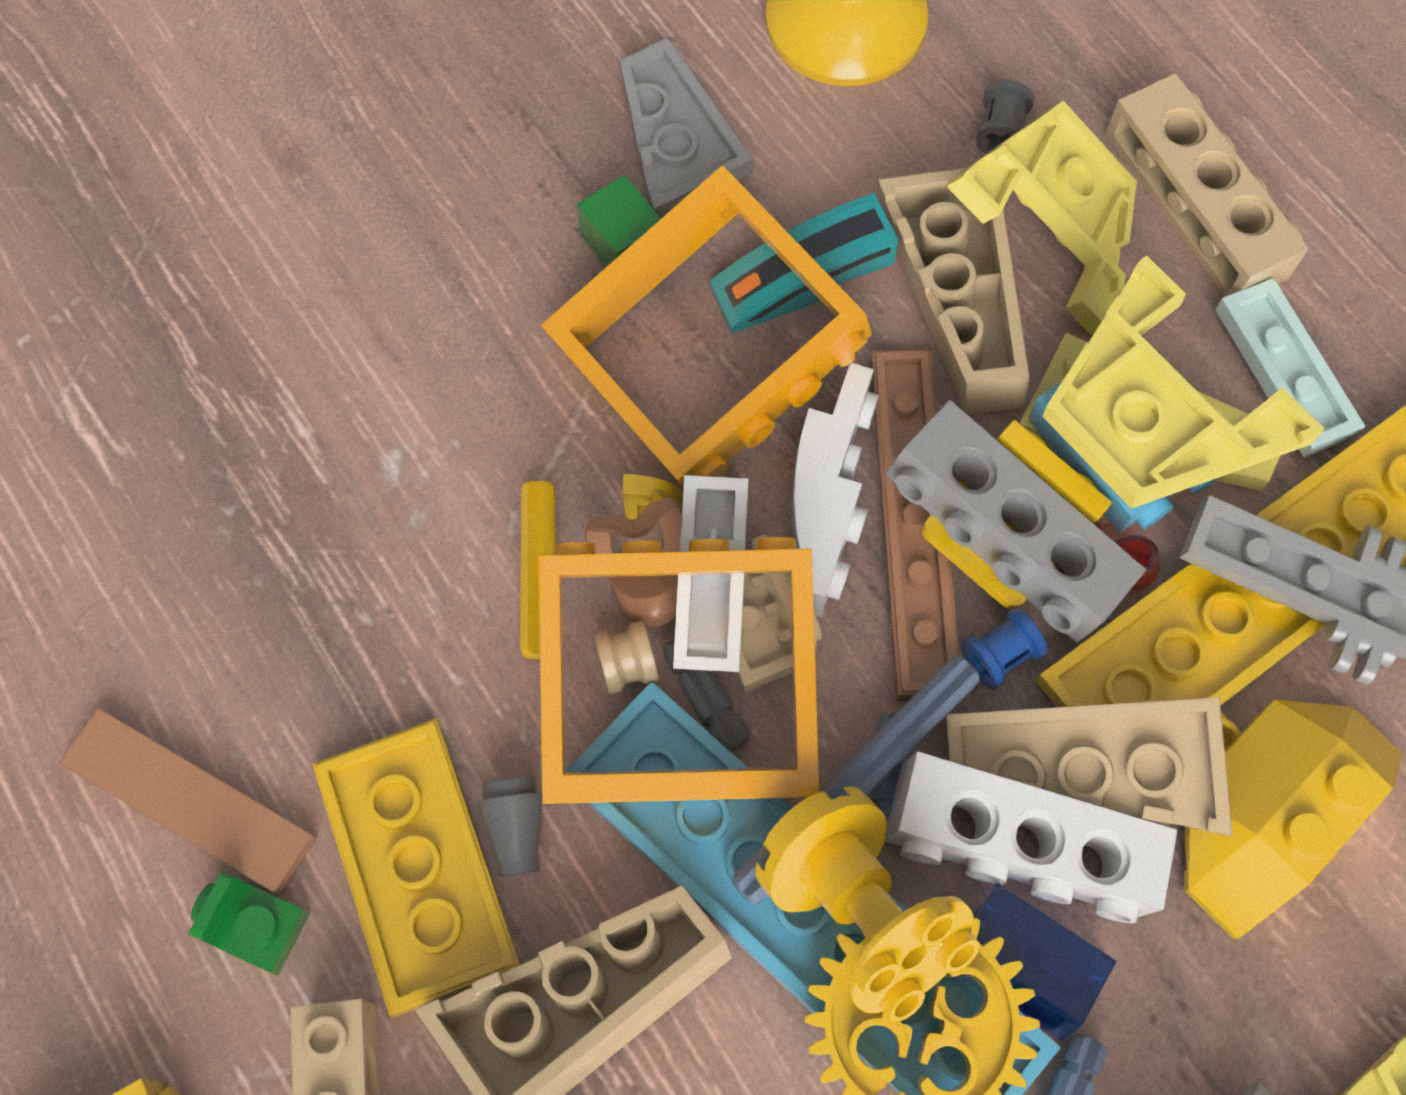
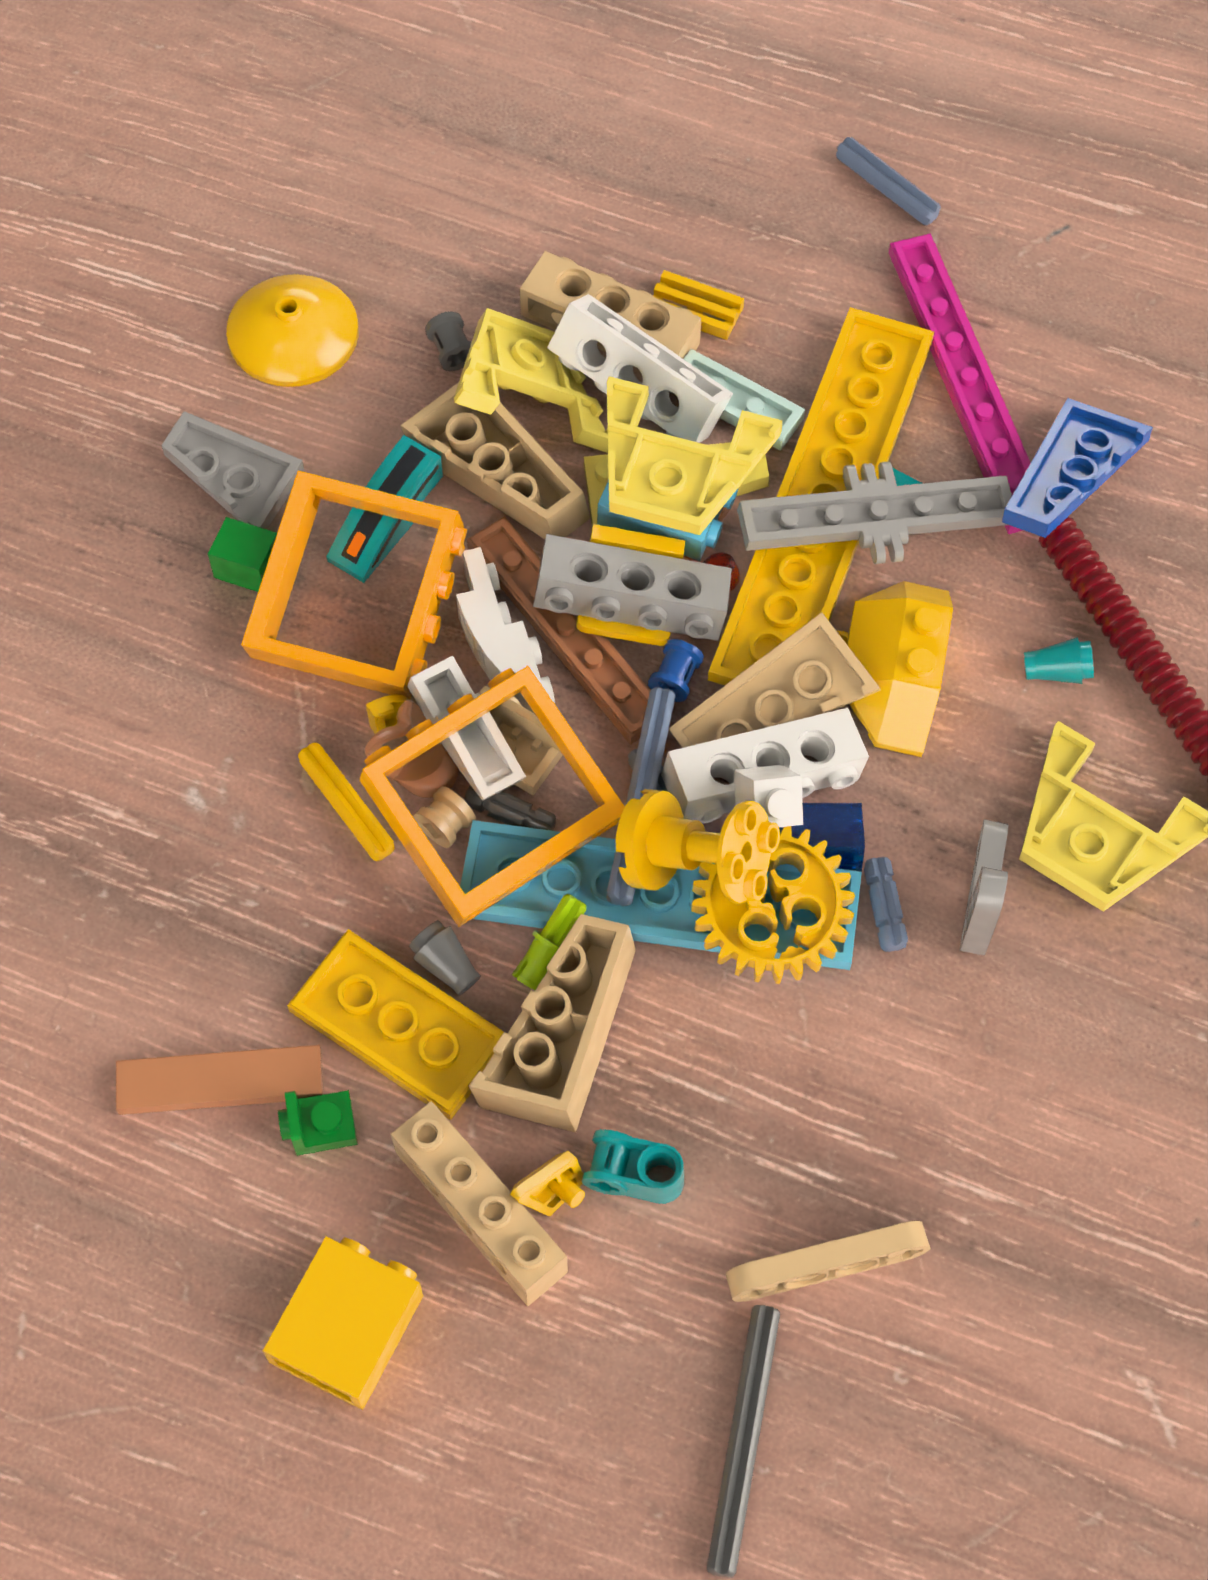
camera: 35 degrees left, 5 degrees down
(634, 886) = (546, 943): none -> lime axle
(1002, 888) = (775, 790): none -> white brick
(1220, 283) = (662, 370): none -> white brick
(1322, 226) = (700, 299): none -> yellow tile

